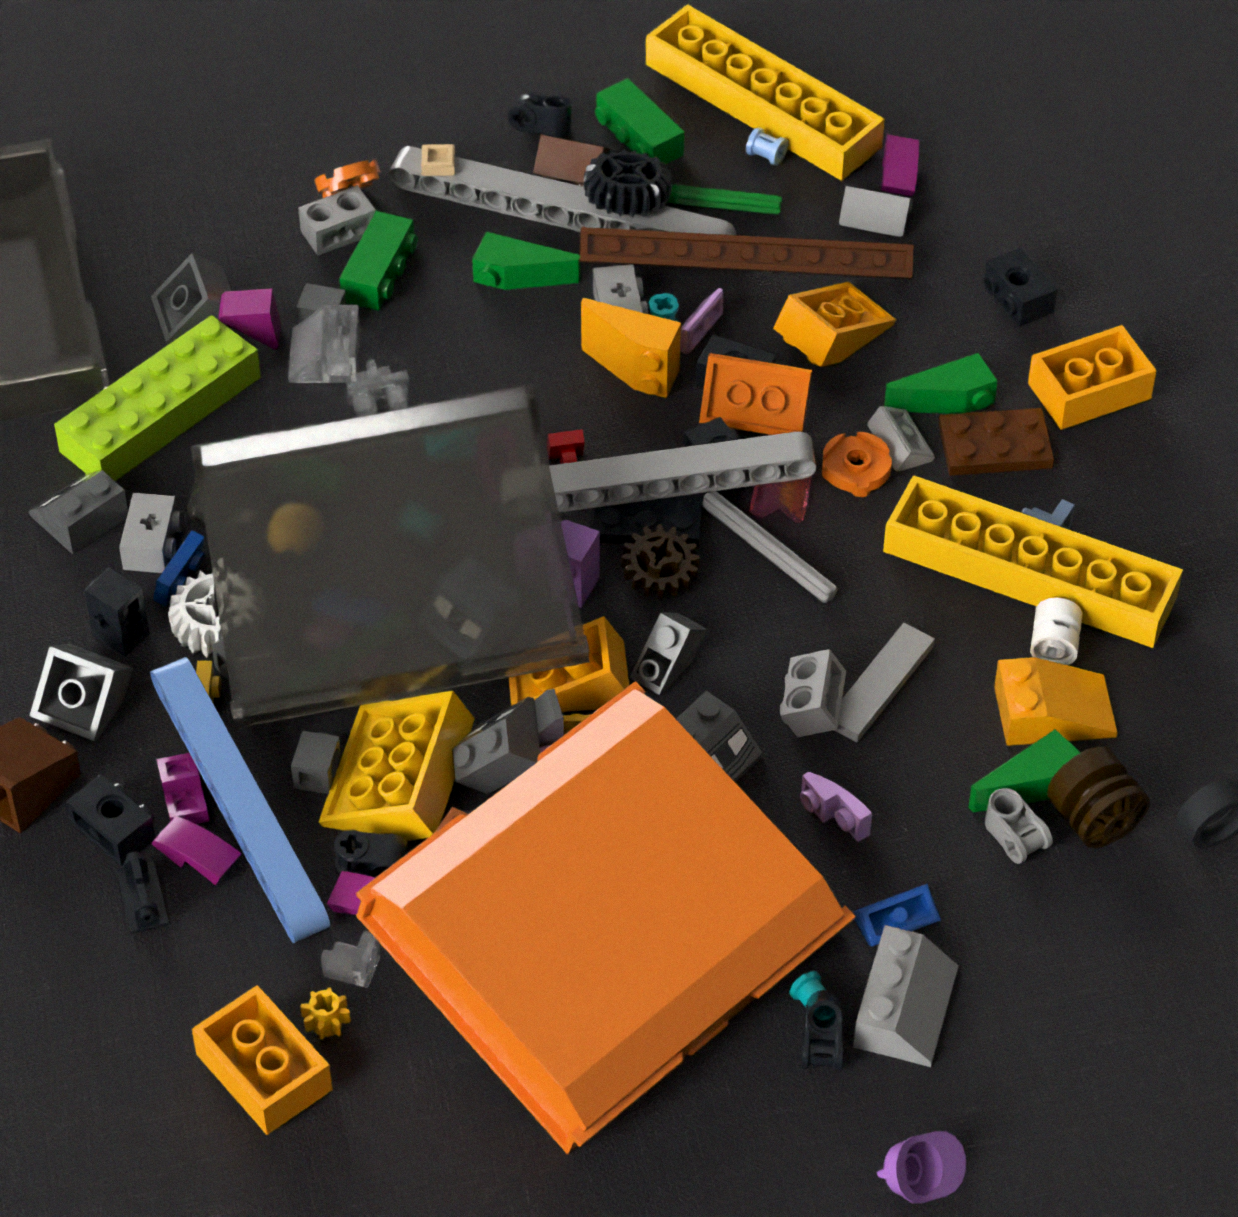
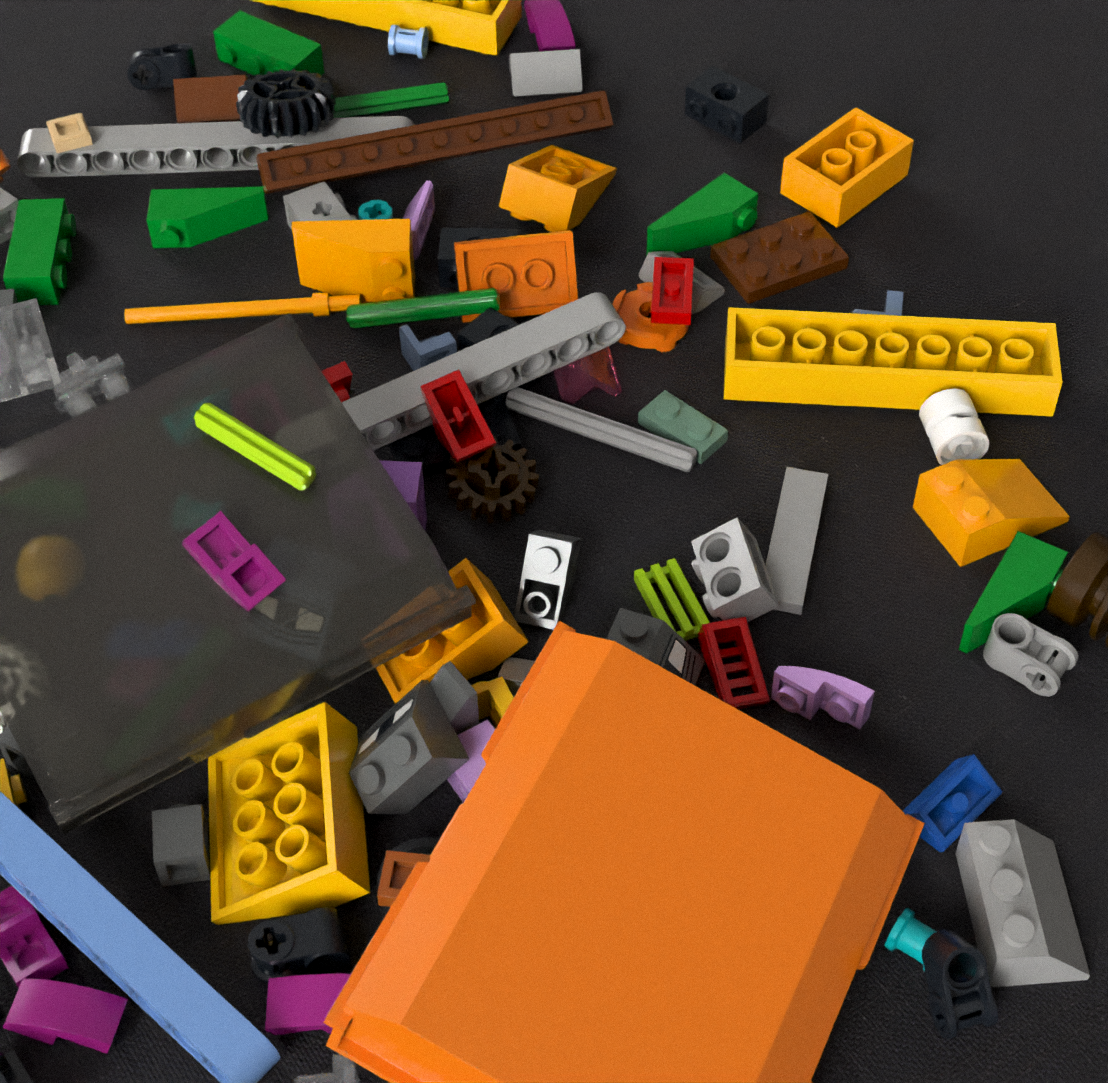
camera: 20 degrees left, 0 degrees up
(416, 565) = (233, 562): none -> magenta slope
(463, 483) = (255, 446): none -> lime axle
(587, 372) = (319, 304): none -> light orange bar
(647, 502) = (456, 416): none -> red slope
(656, 438) = (425, 351): none -> sand blue panel
(668, 401) = (422, 308): none -> green axle
(759, 677) = (660, 575): none -> lime tile
(784, 736) = (729, 631): none -> red slope
(838, 563) = (683, 424): none -> sand green plate
(878, 446) = (672, 290): none -> red plate

